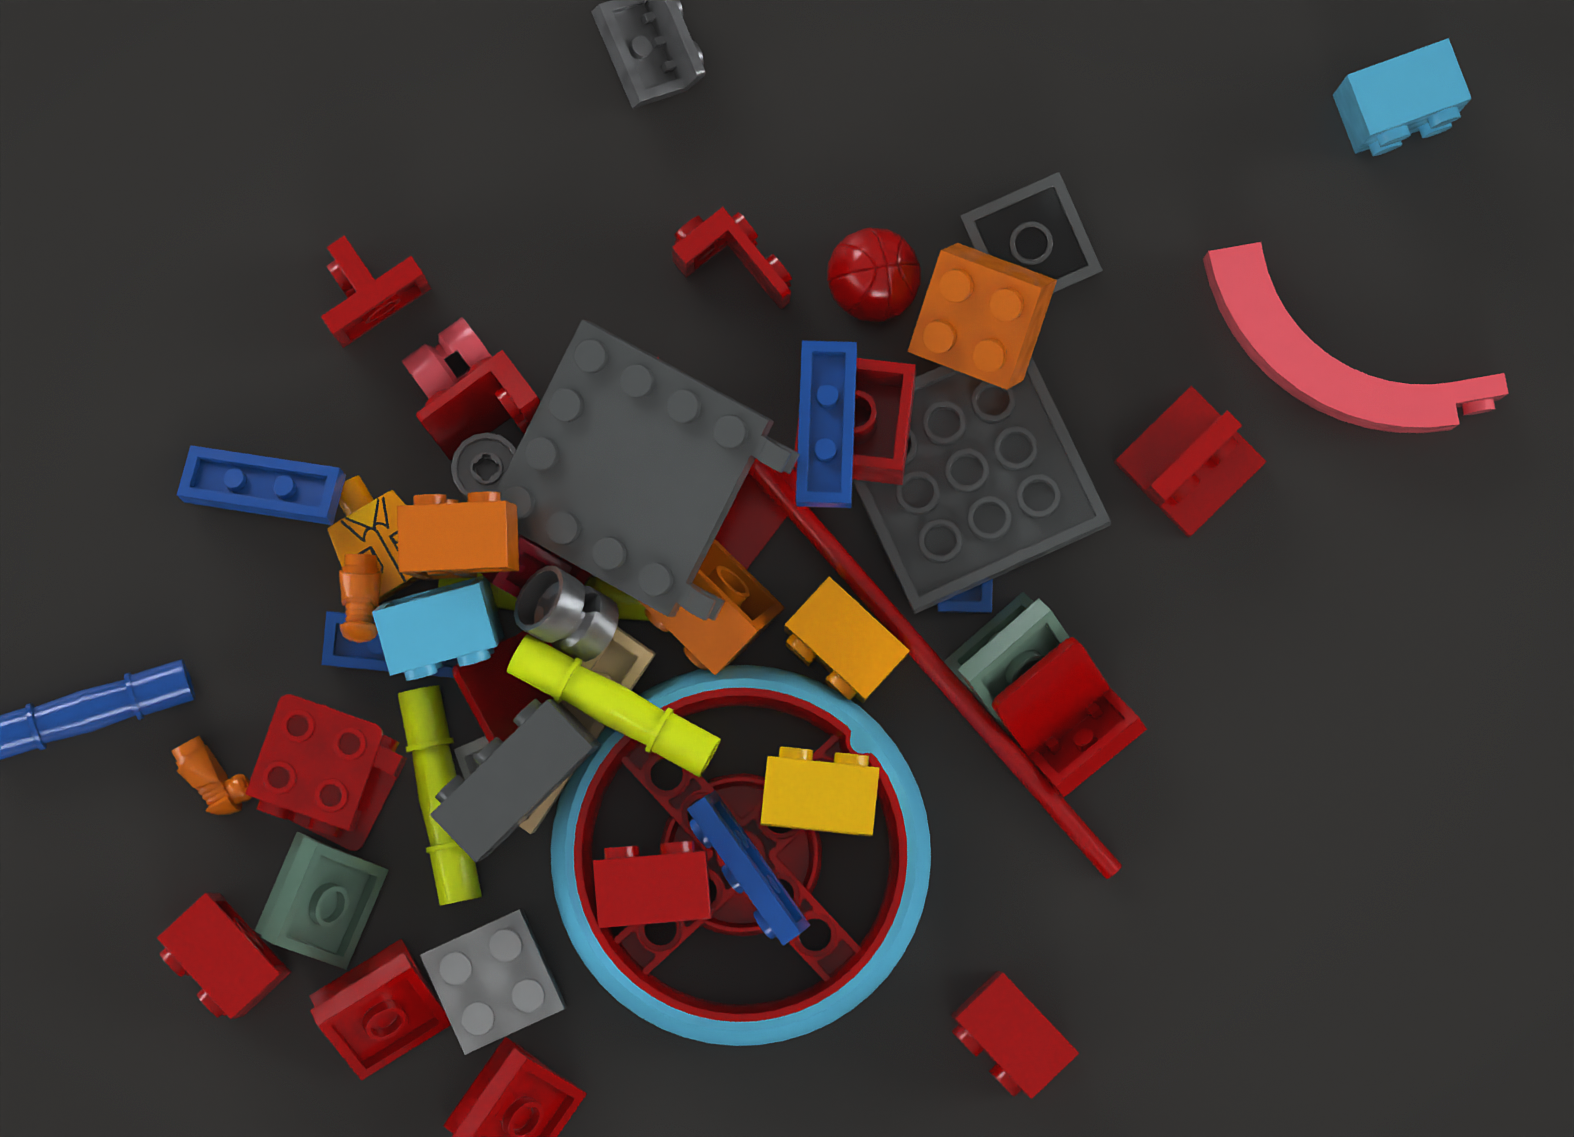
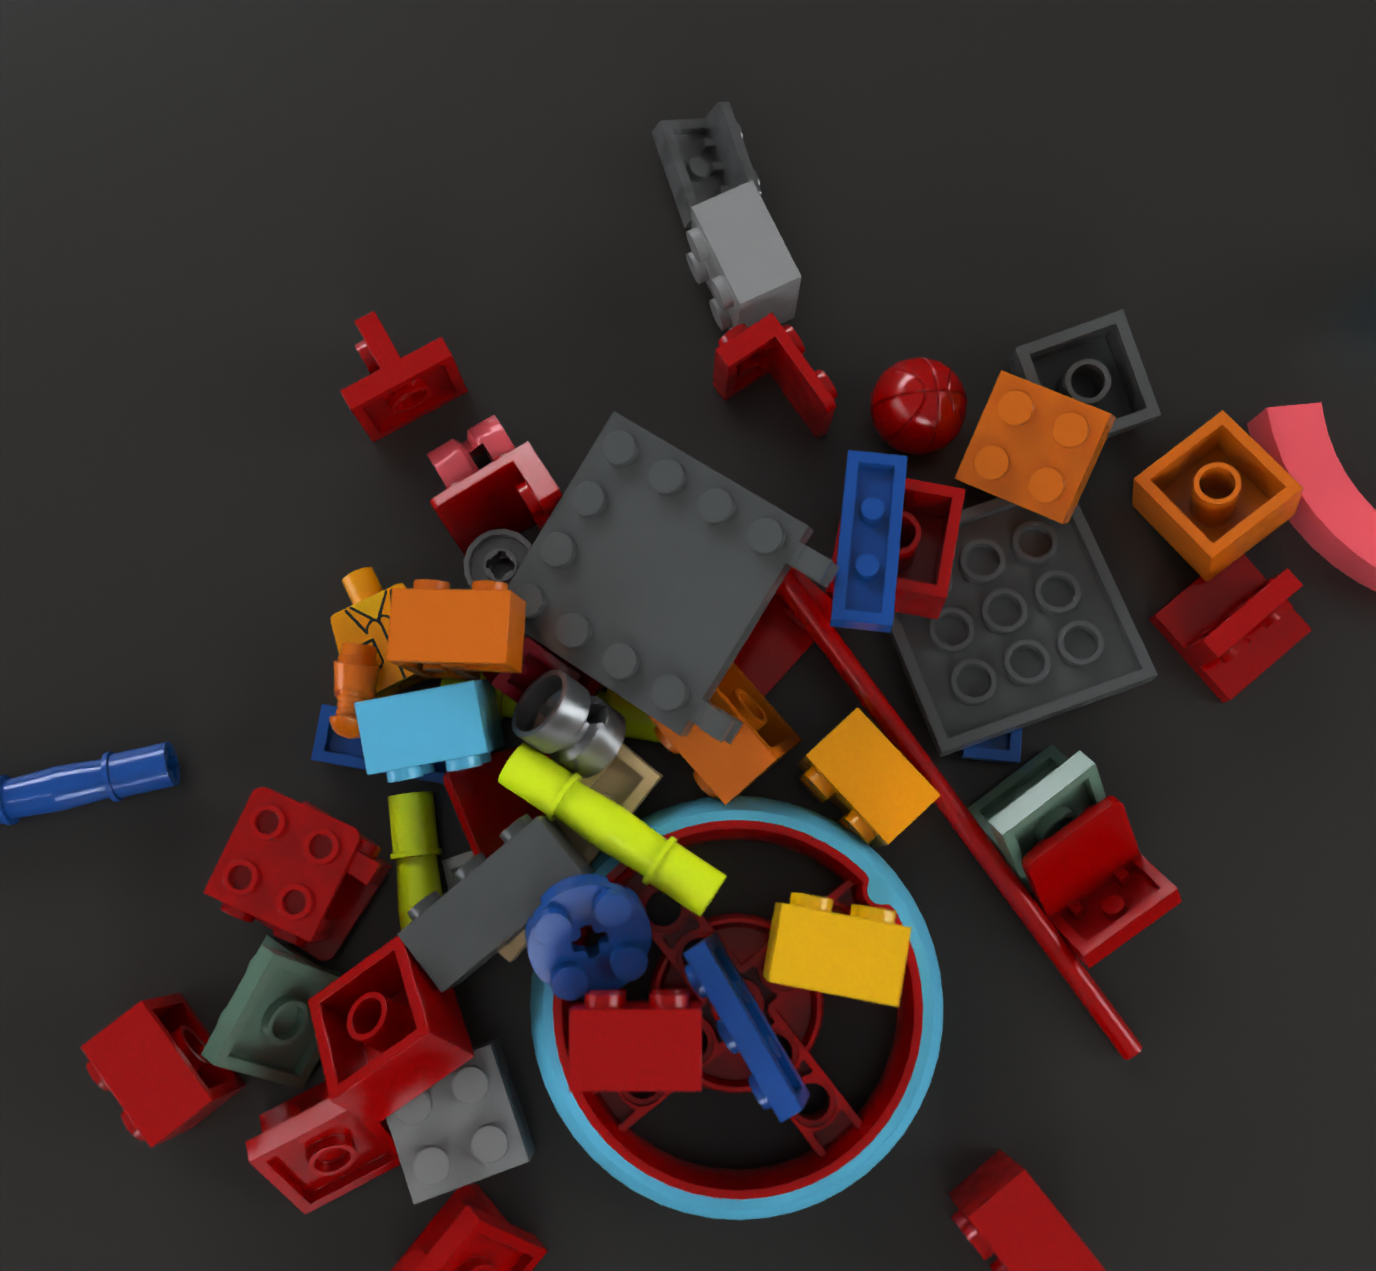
camera: 10 degrees right, 5 degrees down
(207, 776) = (179, 867): orange arm -> none
(261, 485) = (269, 568): blue plate -> none
(428, 901) = (387, 1033): none -> red brick
(574, 789) = (557, 923): none -> blue plate
(692, 146) = (742, 259): none -> light grey brick
(1162, 342) = (1215, 495): none -> orange brick

